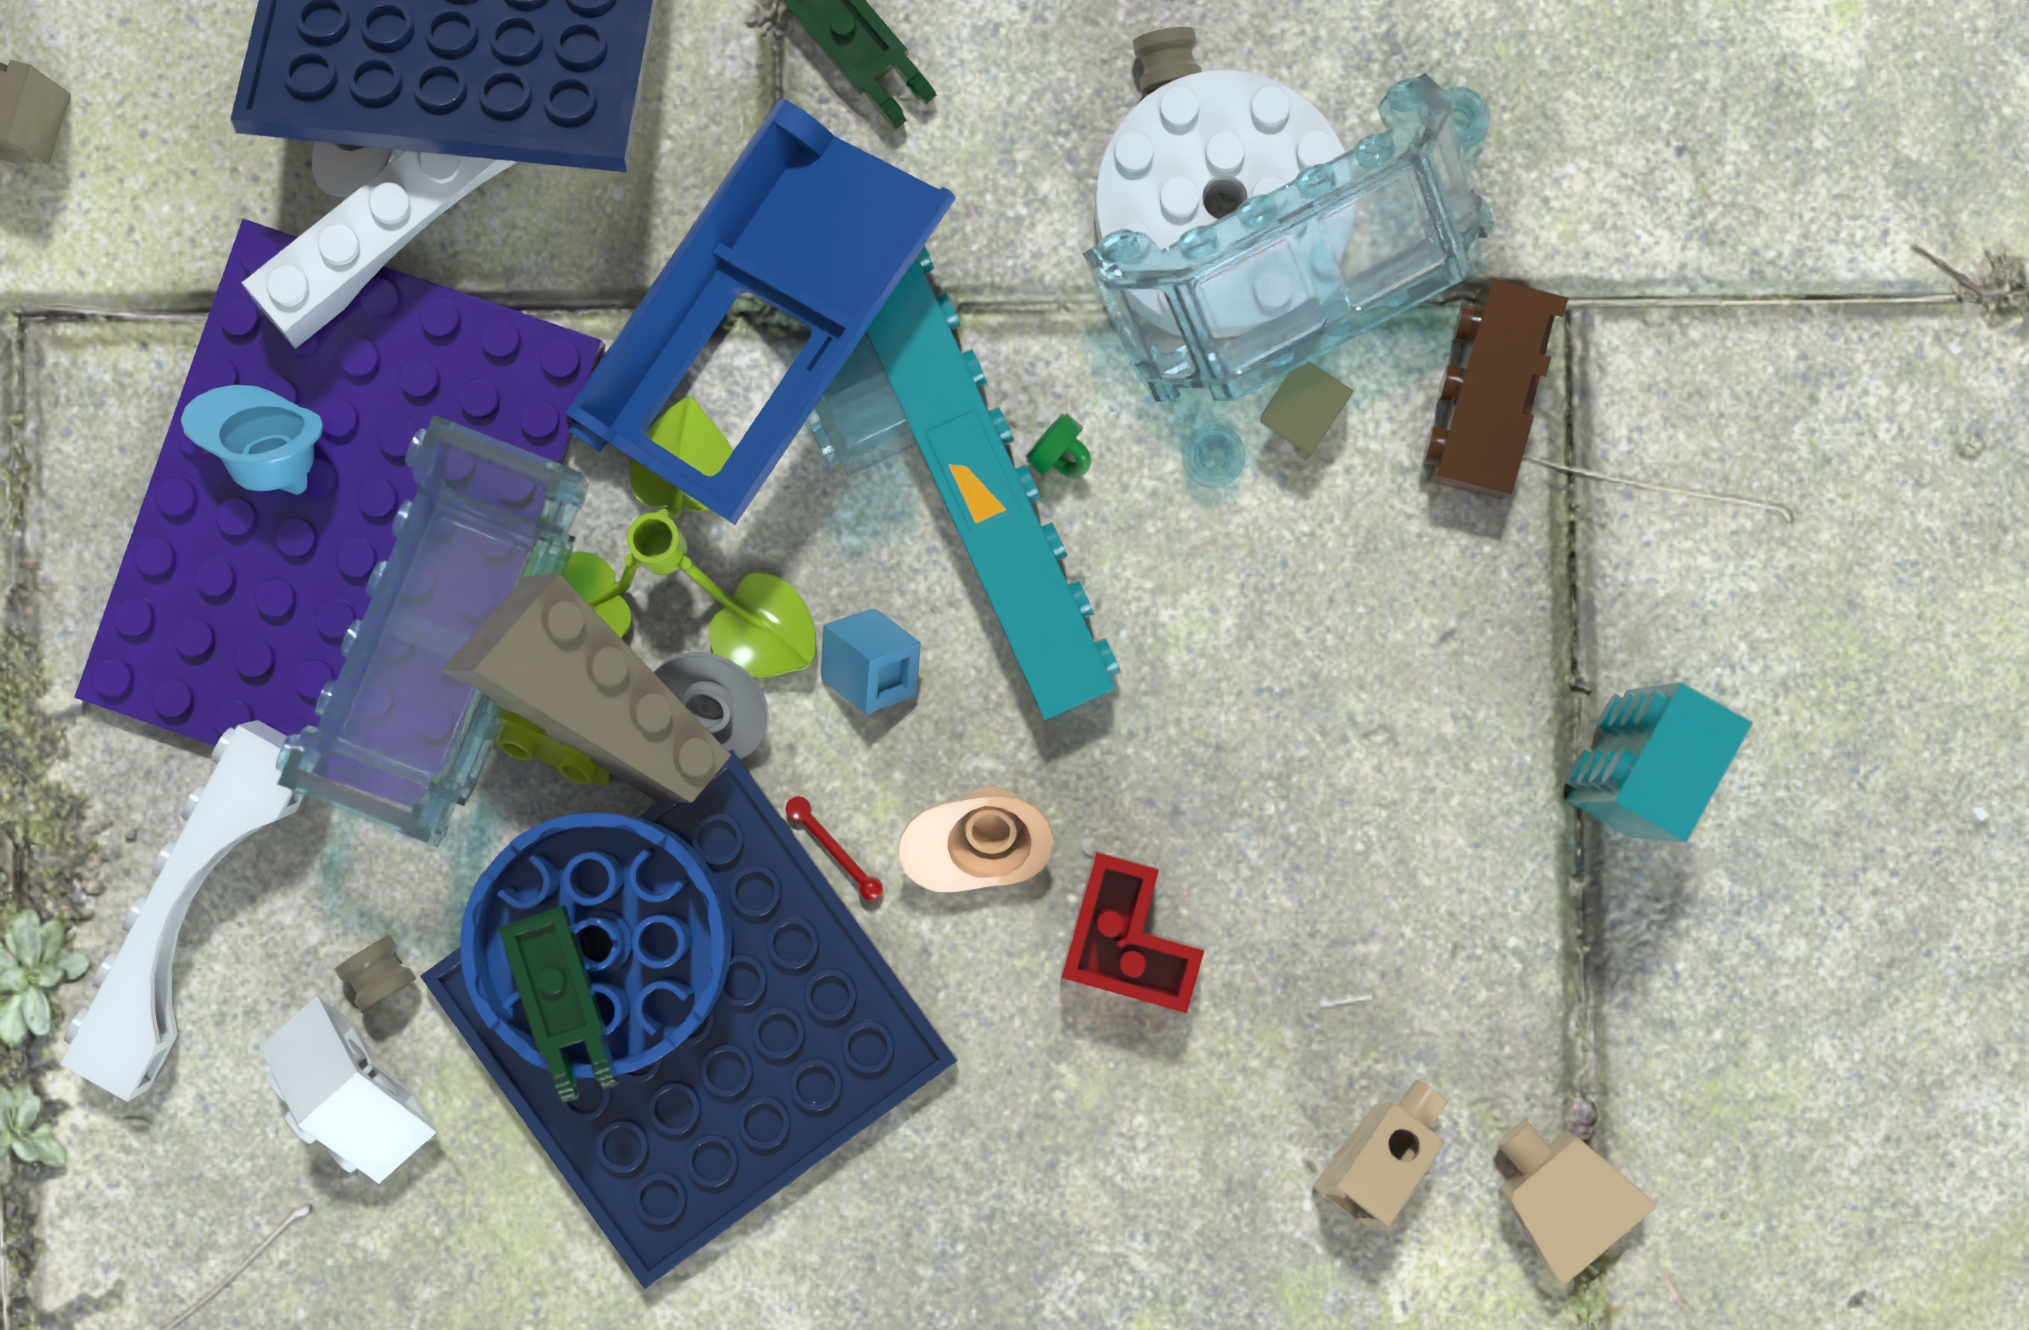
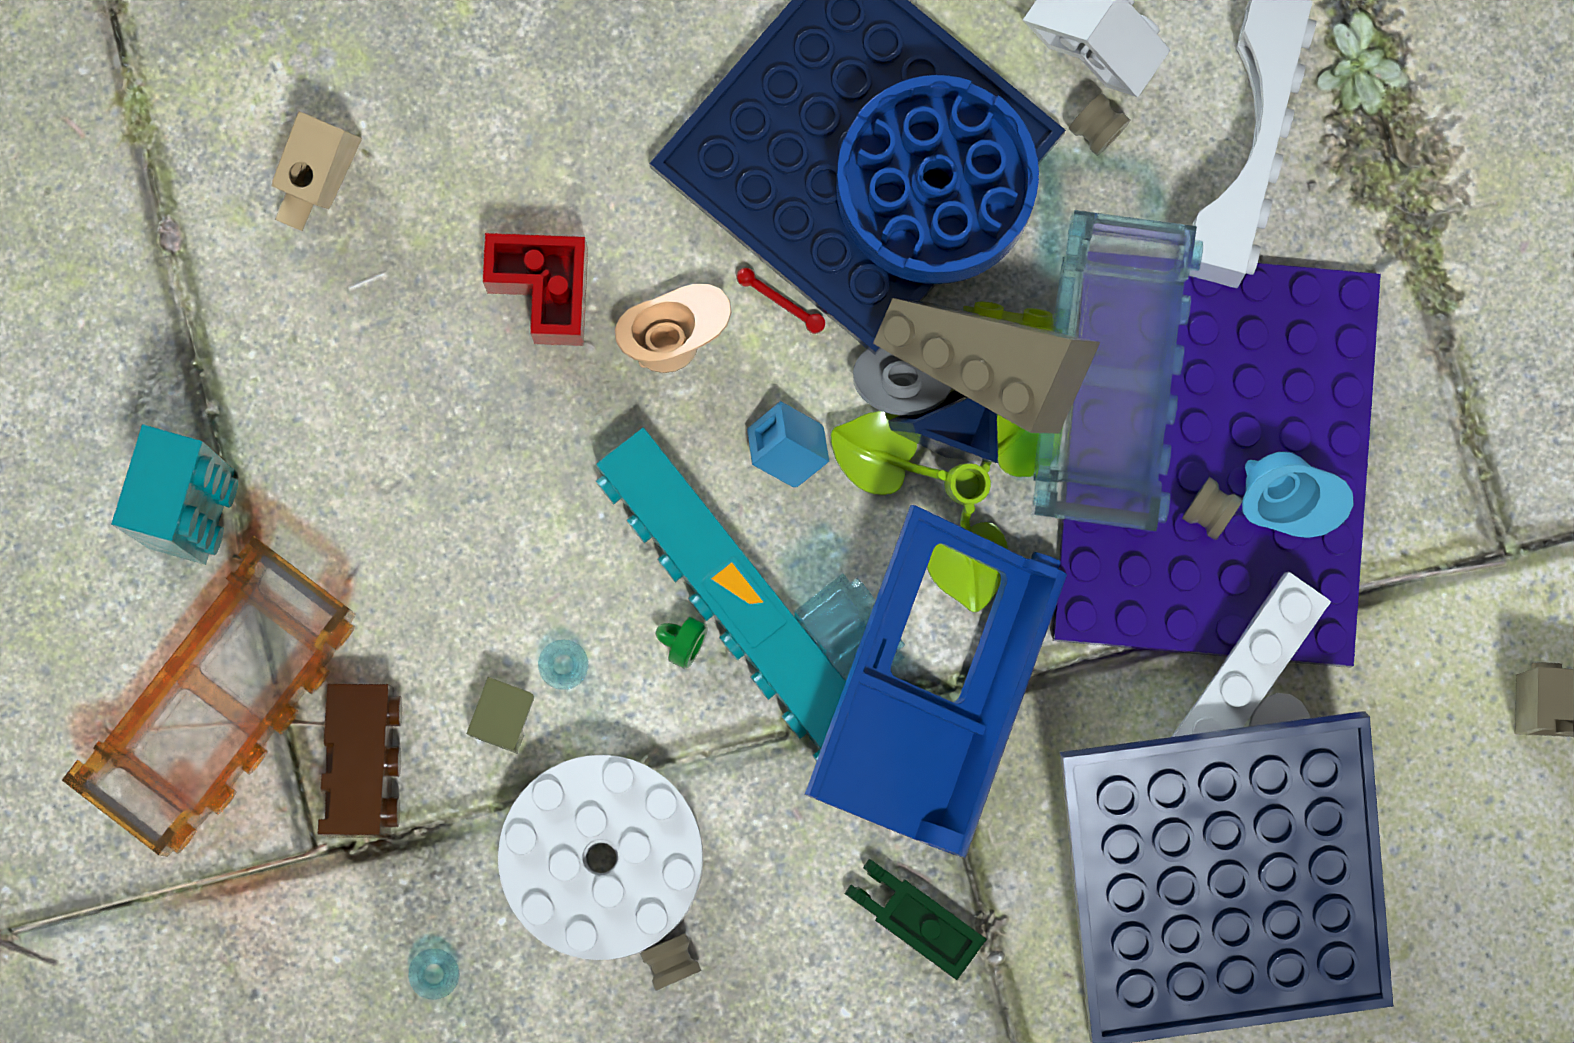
camera: 160 degrees right, 5 degrees down
(361, 444) = (1212, 508): none -> dark tan wheel
(558, 996) = (952, 128): dark green hinge -> none
(656, 623) = (953, 429): none -> dark blue slope
(1300, 263) = (523, 817): windscreen -> none
(1568, 1199) = (167, 172): tan torso -> none
(1661, 500) = (216, 703): none -> windscreen

